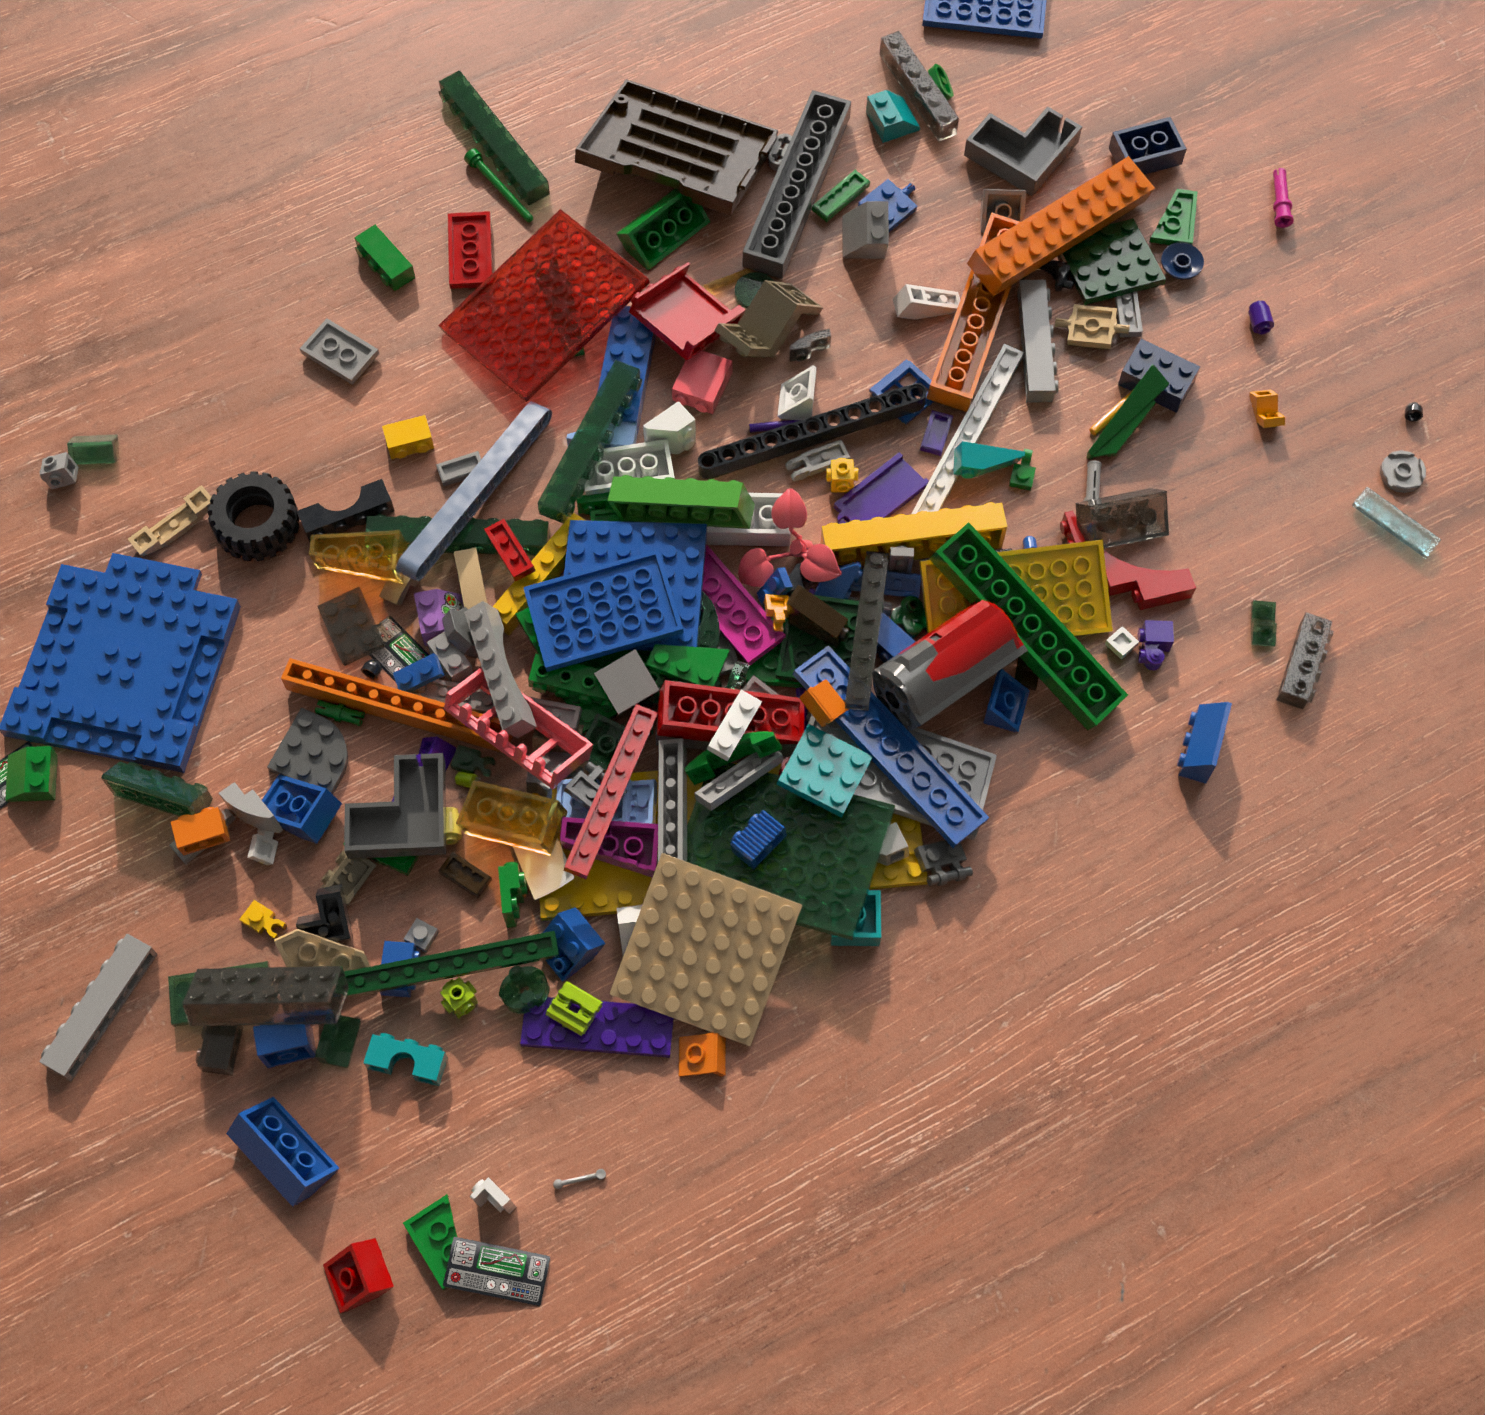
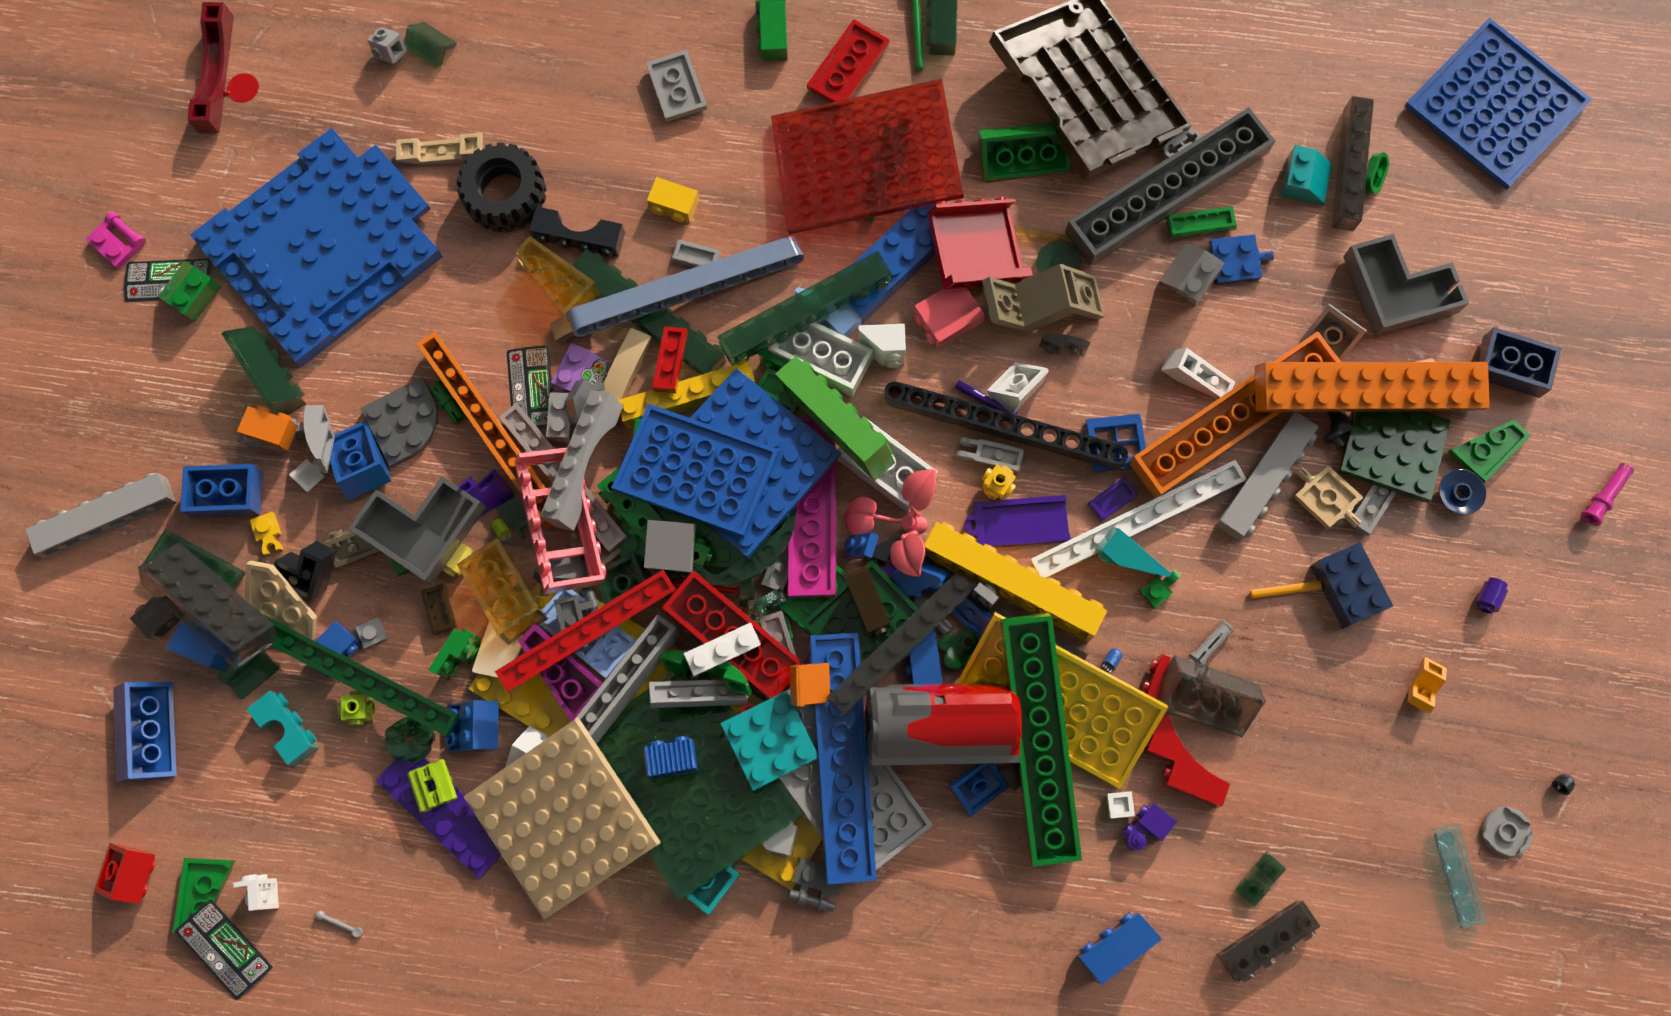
camera: 40 degrees right, 10 degrees up
(197, 910) = (221, 490): none -> blue brick
(351, 626) = (510, 334): clear smoke plate -> none
(371, 669) = (499, 382): black hinge -> none
(419, 673) = (523, 415): blue plate -> none
(688, 663) = (731, 566): green wing -> none
(702, 1055) = (503, 898): orange piece -> none
(776, 607) = (846, 562): light orange plate -> none
(1129, 415) = (1292, 606): green wedge -> none

